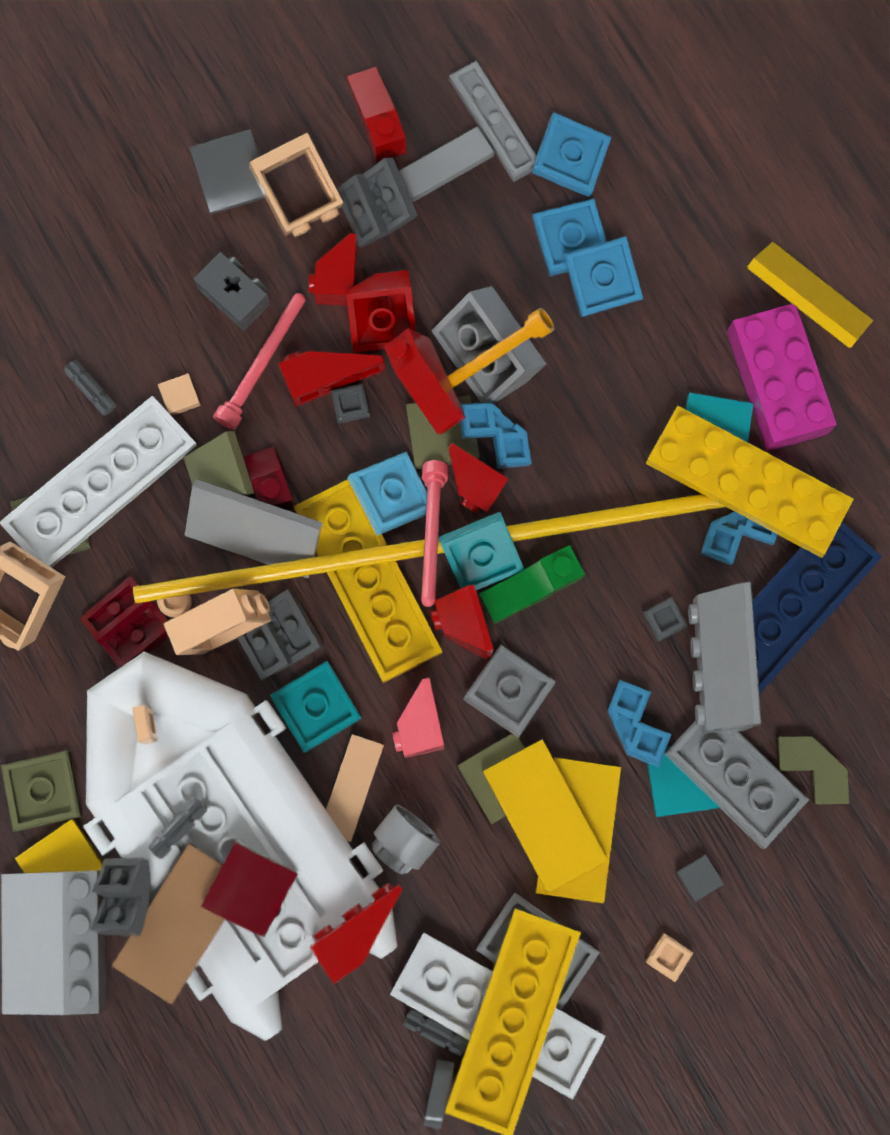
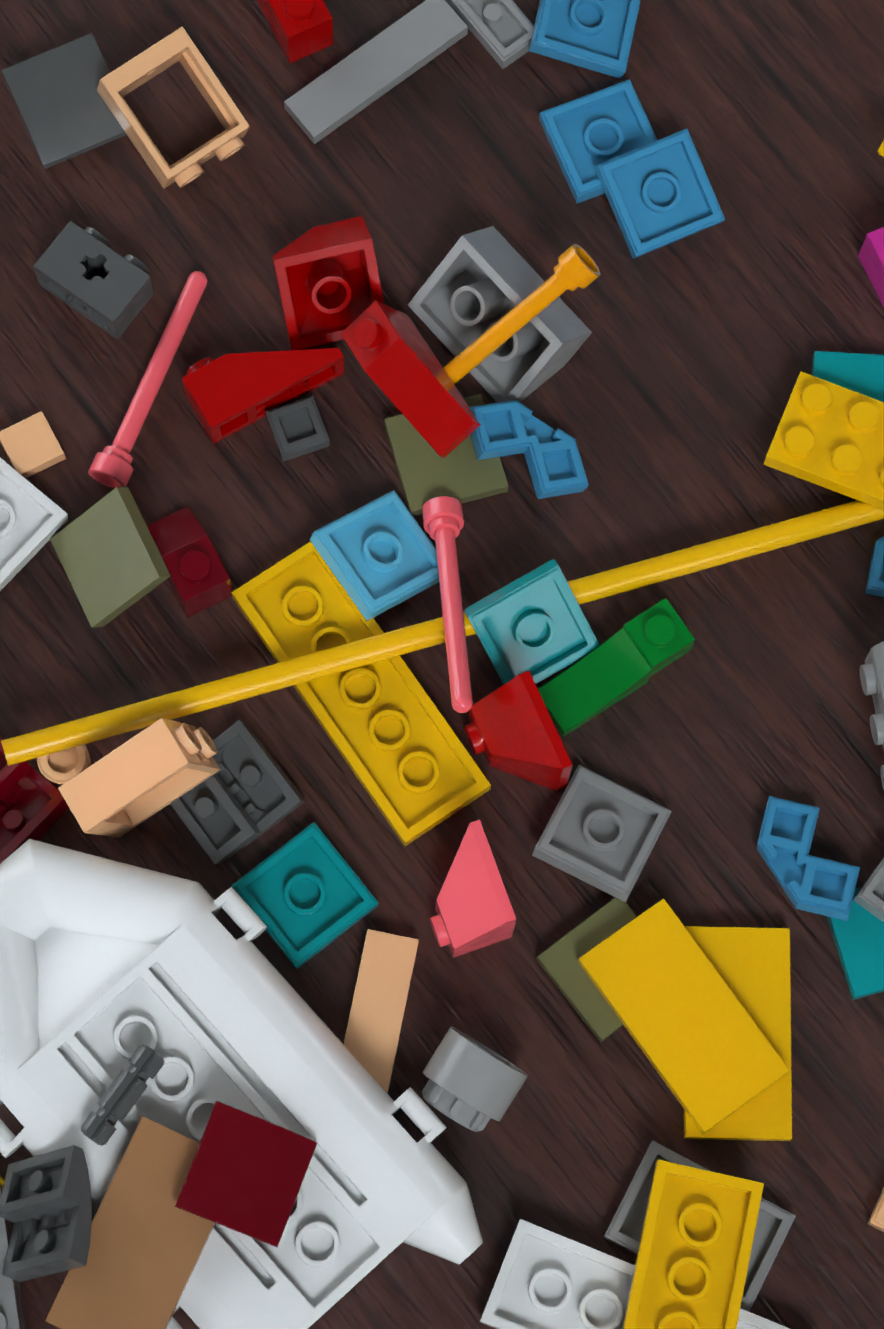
camera: 10 degrees left, 5 degrees down
(145, 724) = (51, 942): light nougat tile -> none
(249, 526) = (168, 628): light grey tile -> none
(335, 273) = (250, 235): red slope -> none
(350, 942) = (414, 1235): red slope -> none
(376, 202) = (299, 121): dark grey slope -> none
(474, 480) = (505, 518): red slope -> none
(665, 619) = (825, 697): dark grey tile -> none

